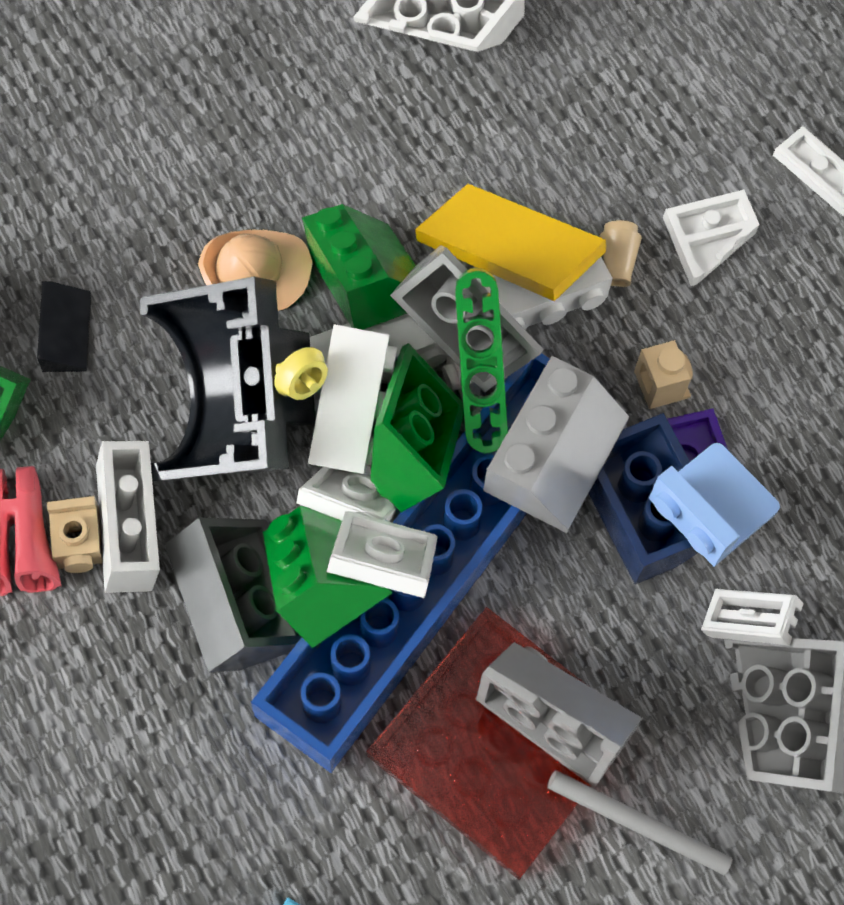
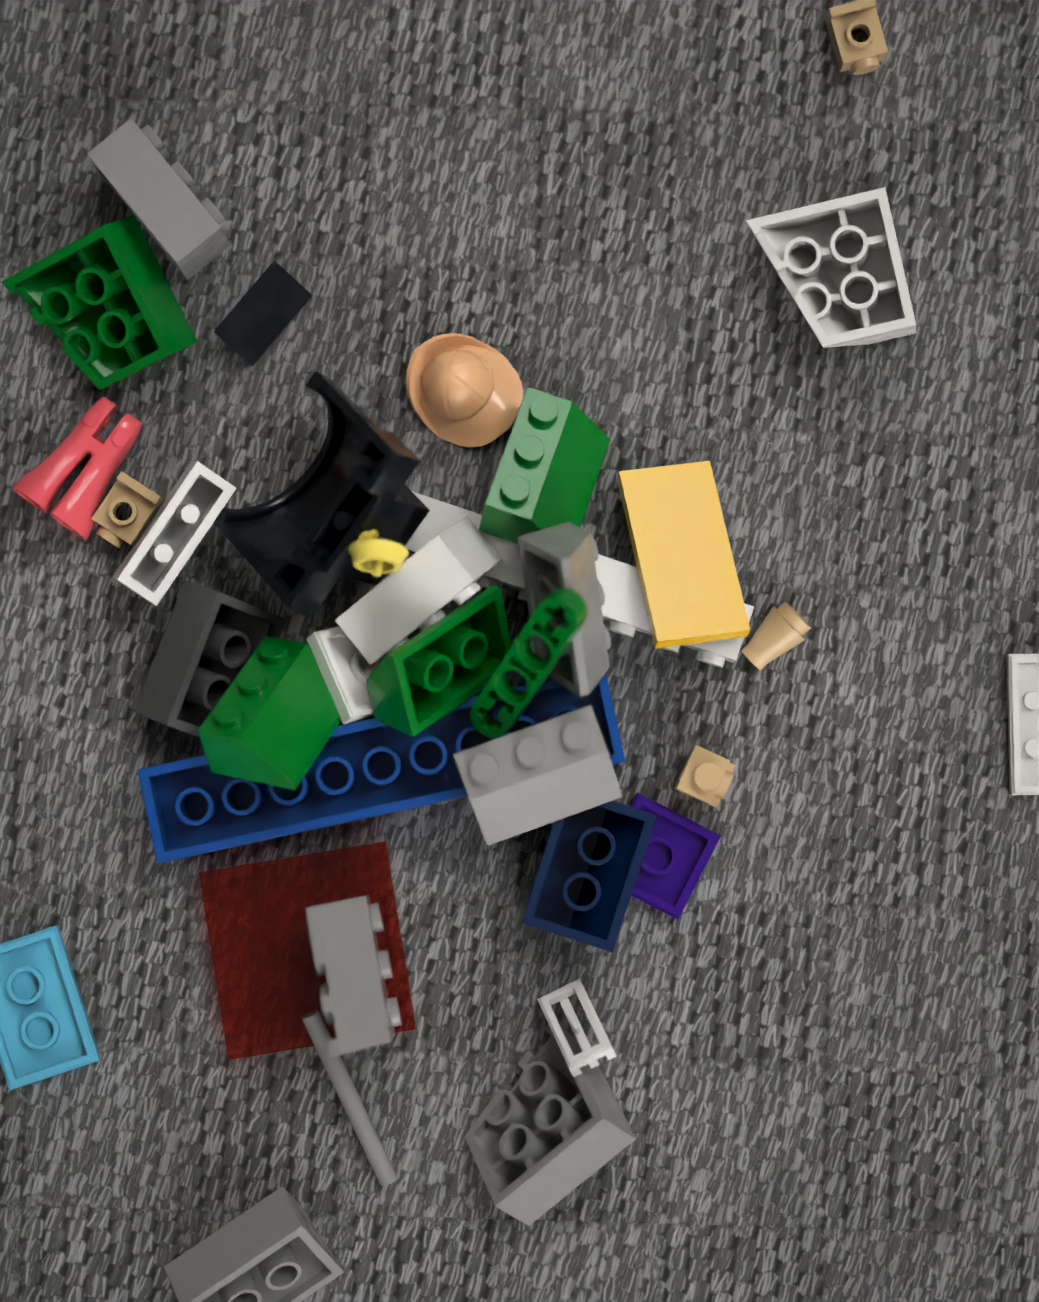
camera: 50 degrees right, 20 degrees up
(383, 554) = (320, 750): white tile -> none
(710, 231) = (872, 682): white wing -> none
(714, 502) = (617, 925): light blue bracket -> none

